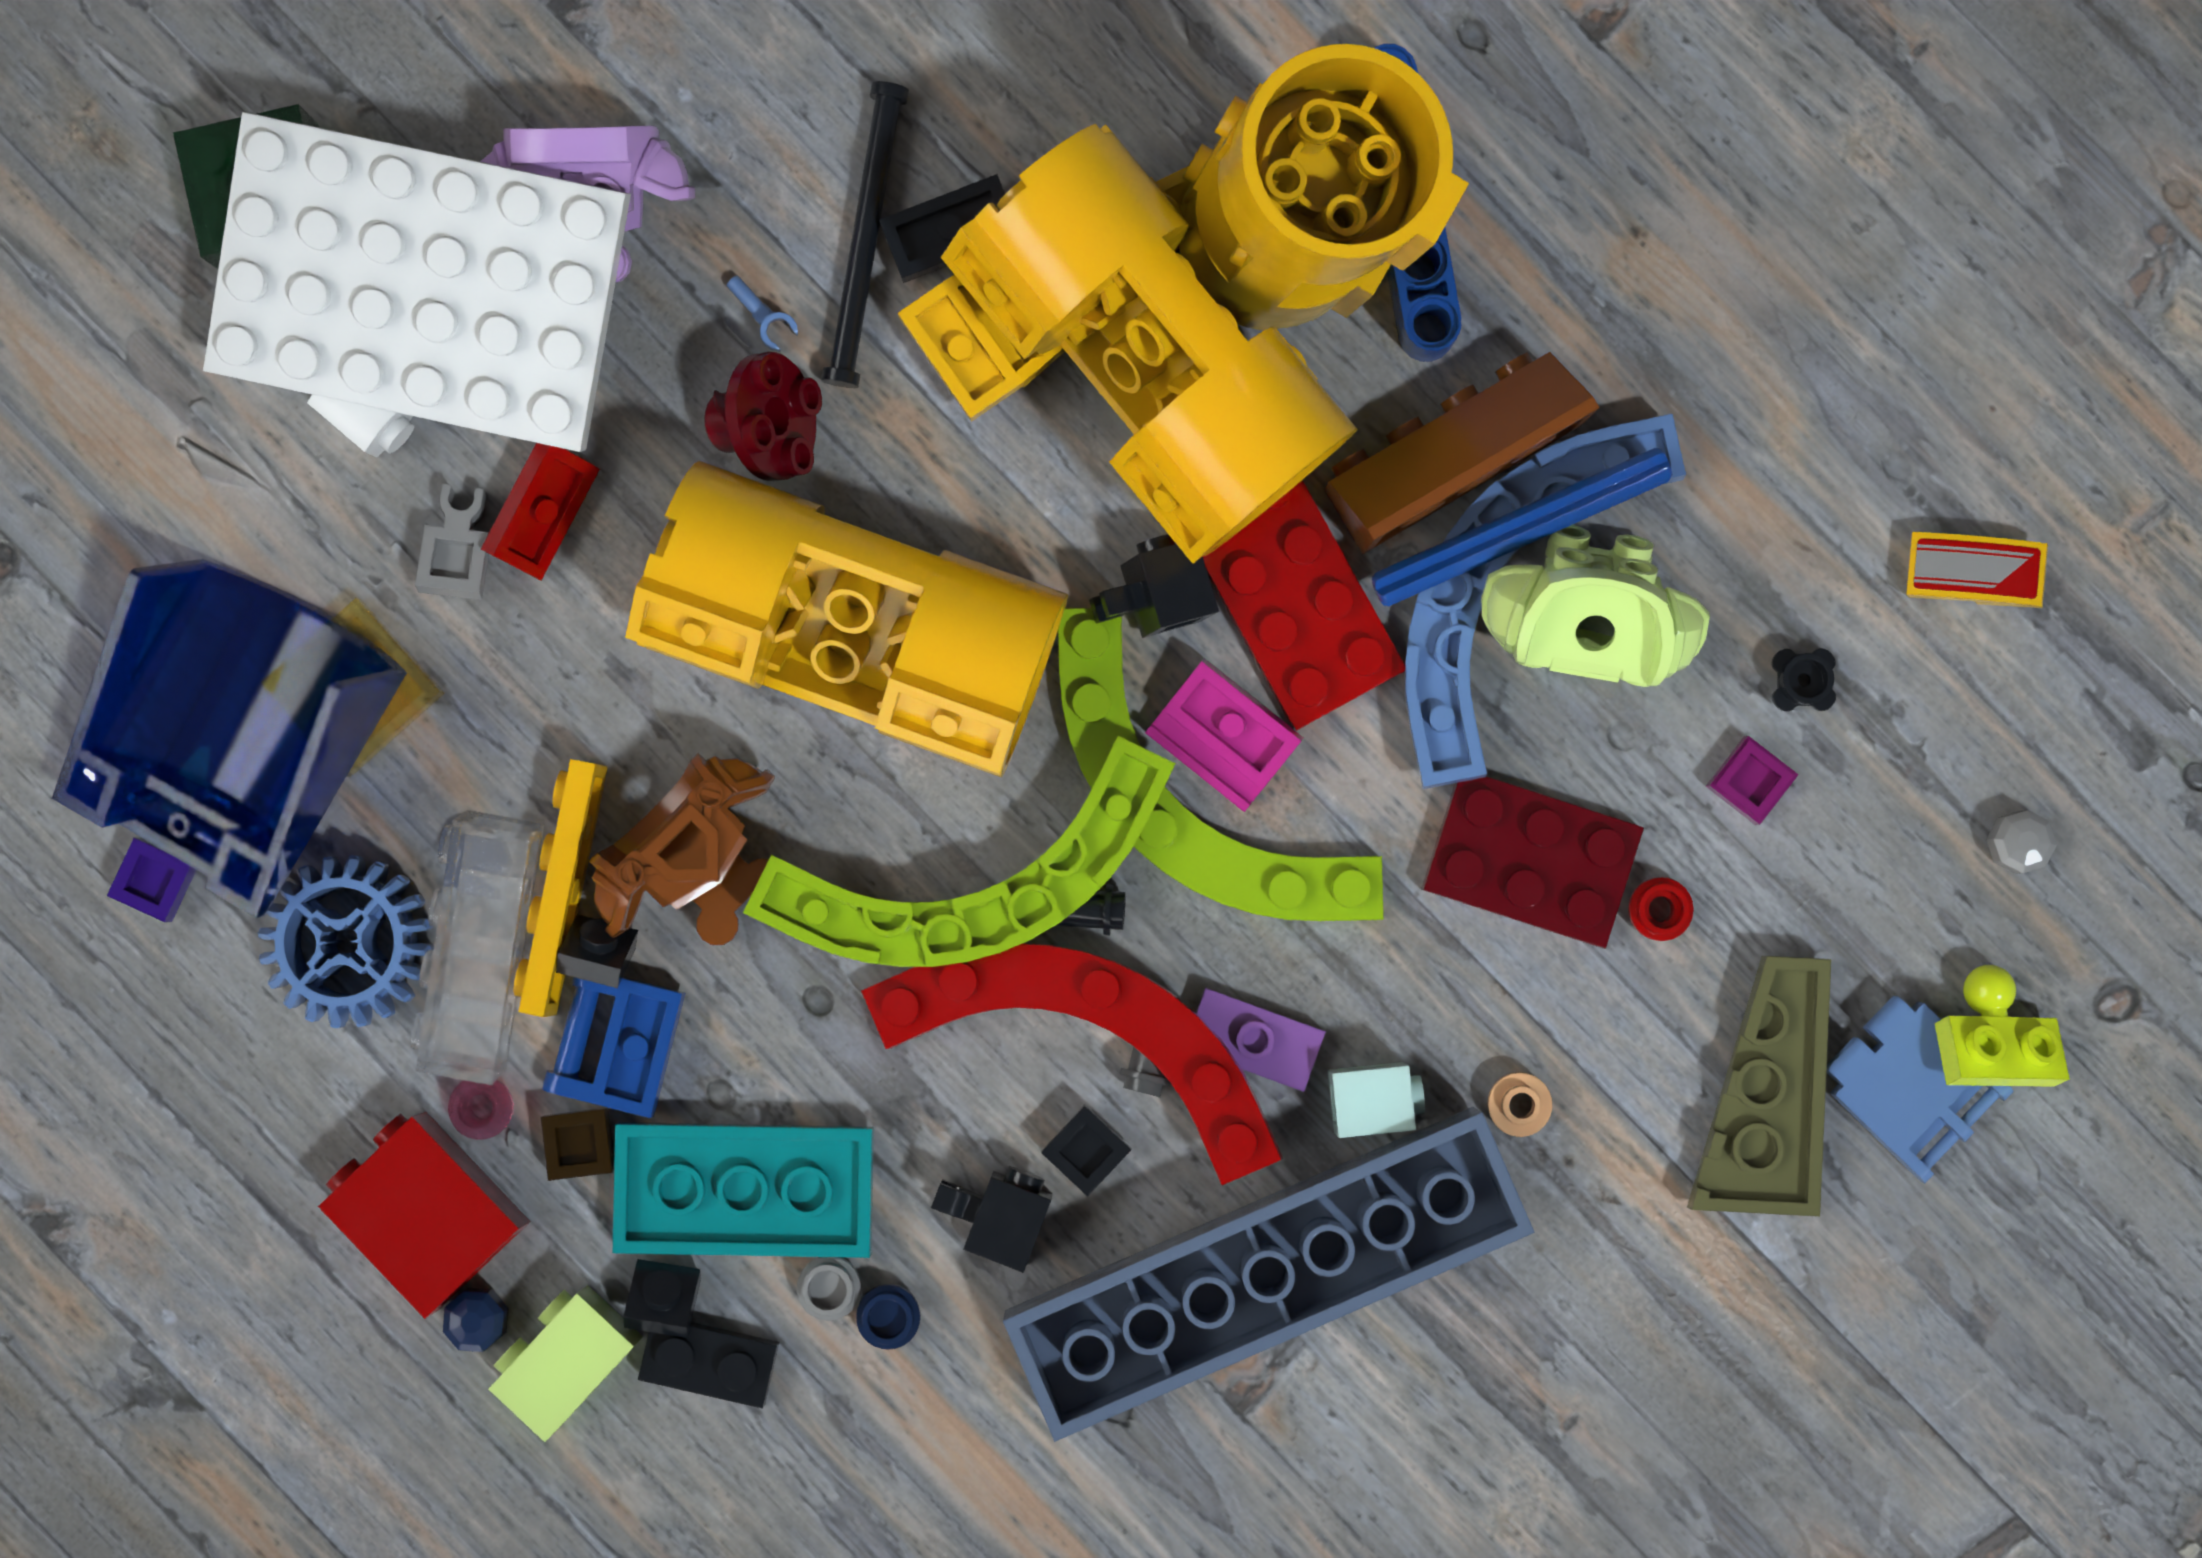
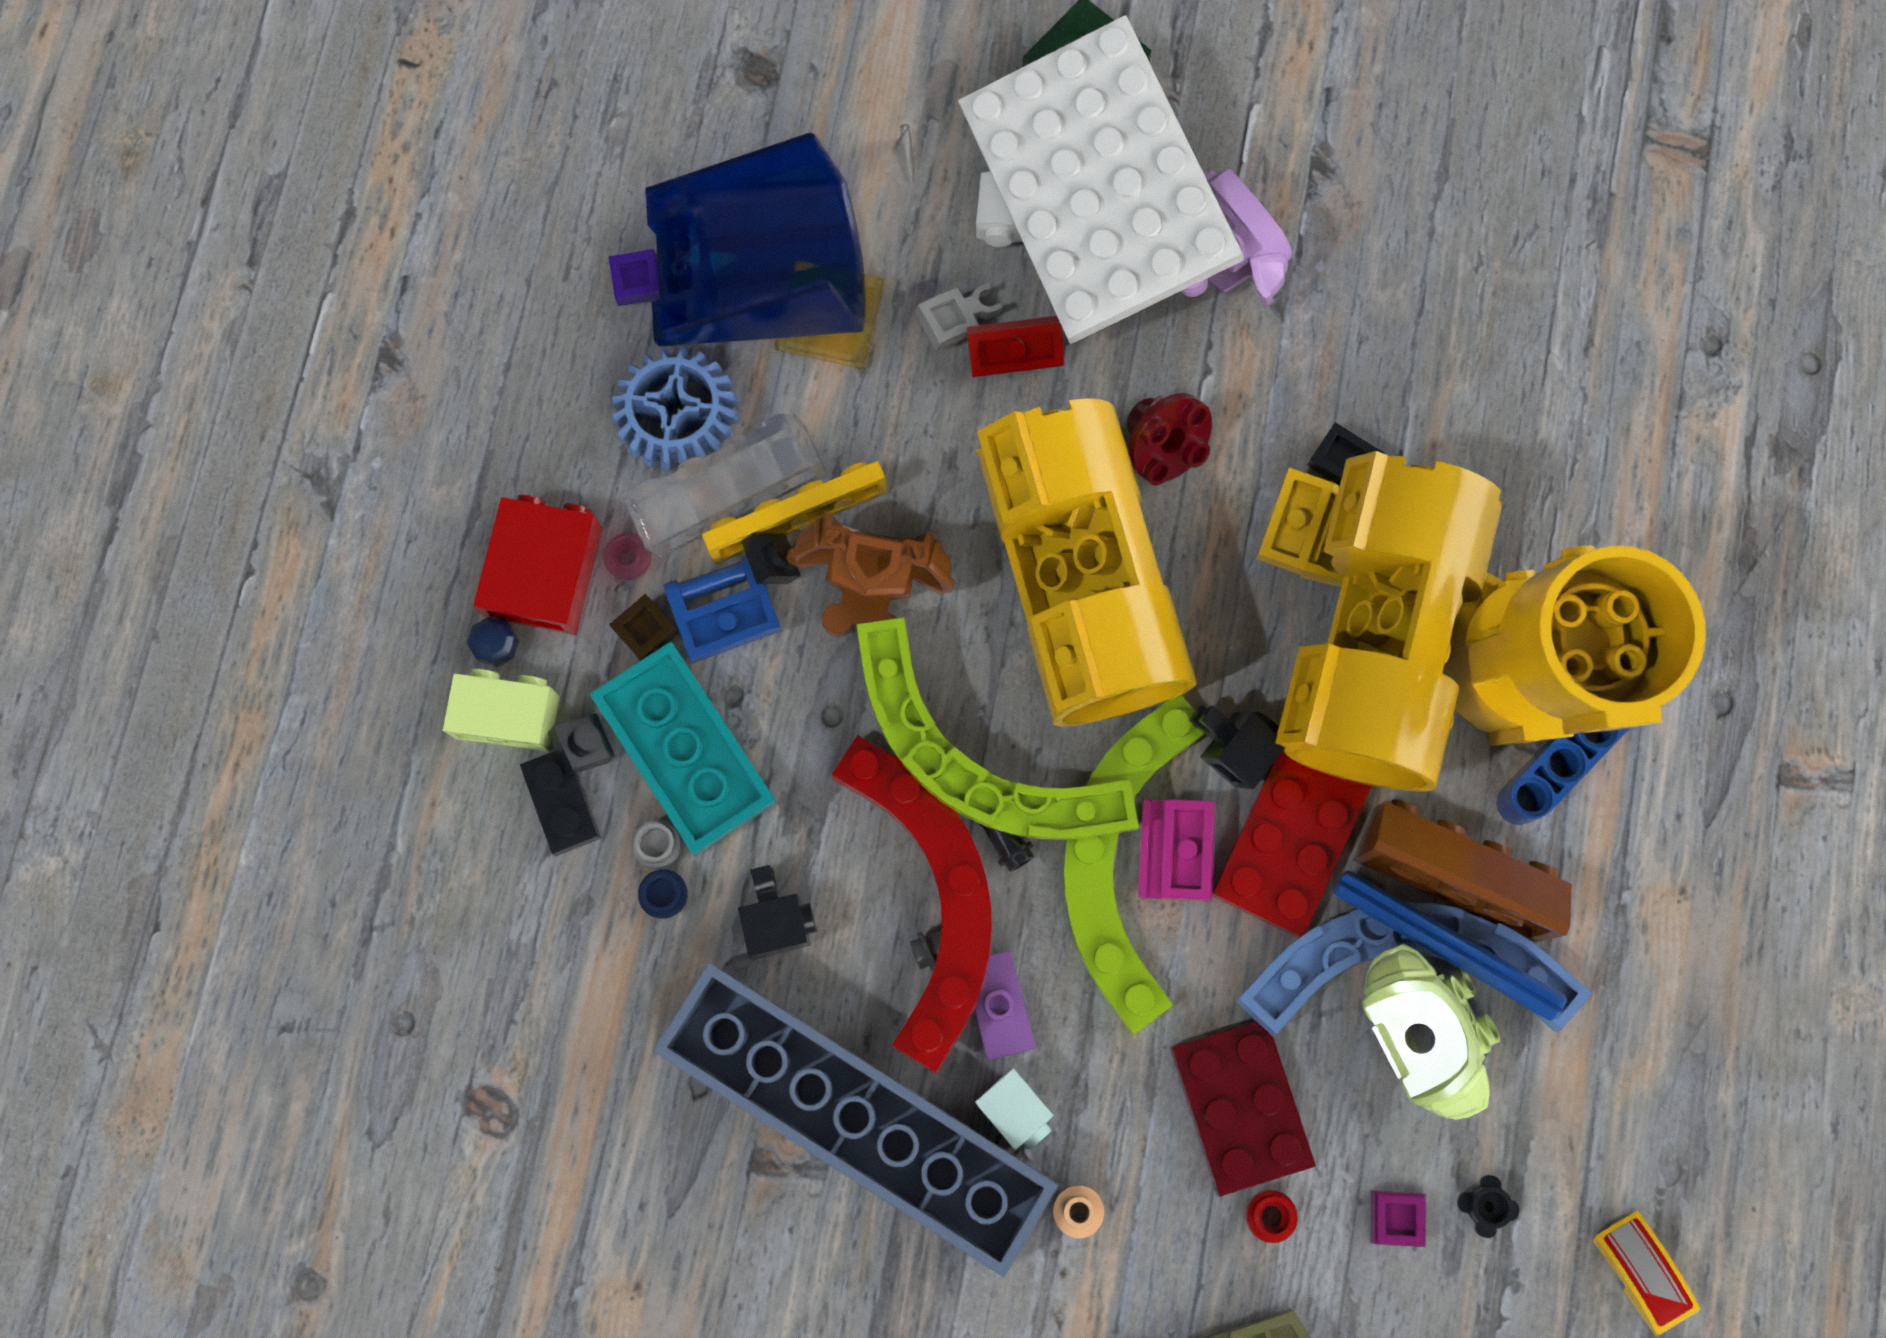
camera: 55 degrees right, 10 degrees down
(760, 312) = (1226, 394): medium blue hand -> none
(887, 99) = (1409, 380): black bar -> none
(1086, 1150) = (853, 945): black plate -> none

